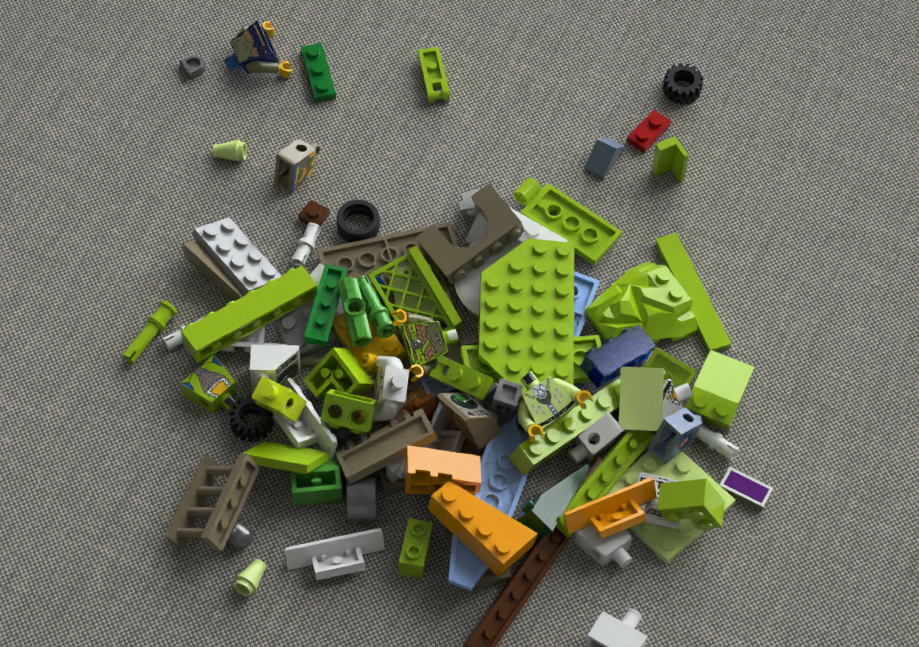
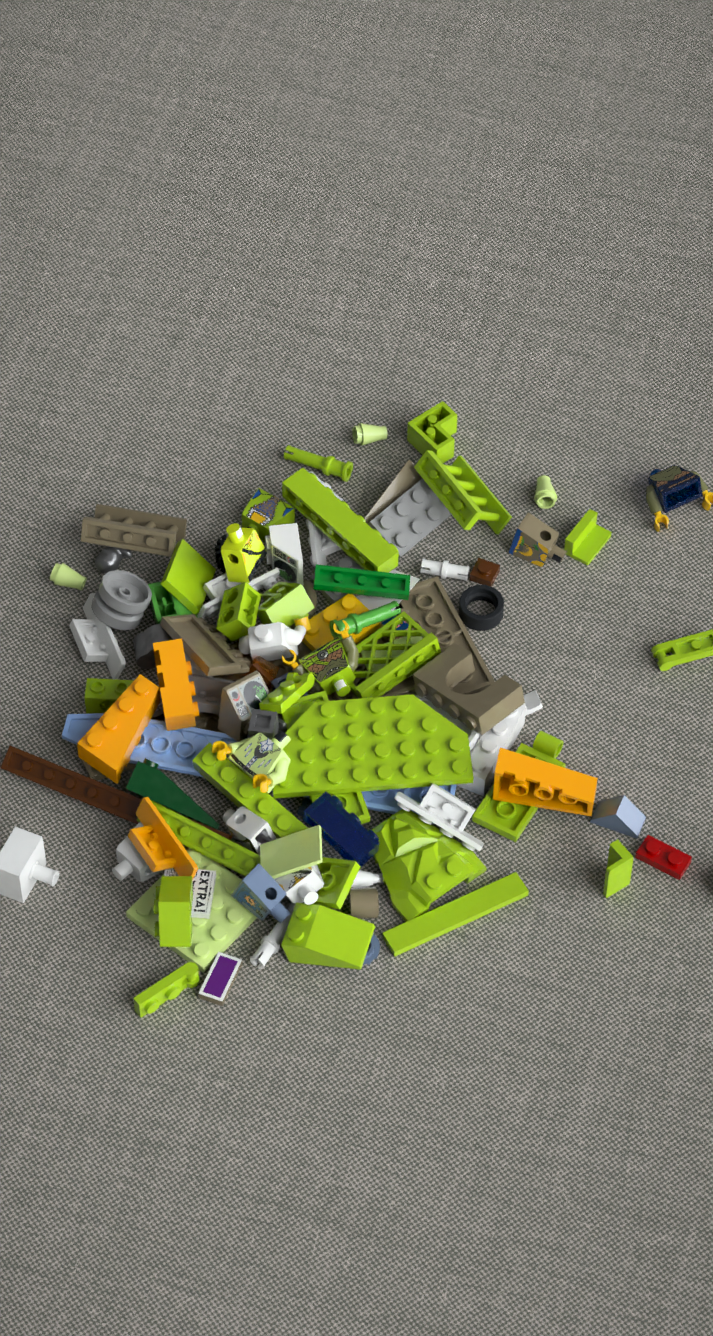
camera: 85 degrees right, 5 degrees down
(122, 286) = (366, 433): none -> yellowish green cone
(145, 229) = (433, 431): none -> lime brick
(192, 66) = (646, 448): flat silver tile -> none
(228, 209) = (462, 492): none -> lime fence
(291, 127) = (586, 538): none -> lime panel
(307, 519) = (121, 600): none -> light grey wheel
(318, 72) = (666, 552): green plate -> none
(356, 322) = (352, 601): bright green piece -> none
(580, 196) = (542, 784): none -> light orange wedge
(597, 277) = (445, 811): none -> white bracket
(683, 351) = (364, 903): none -> dark tan piece
(759, 532) = (166, 989): none -> lime plate

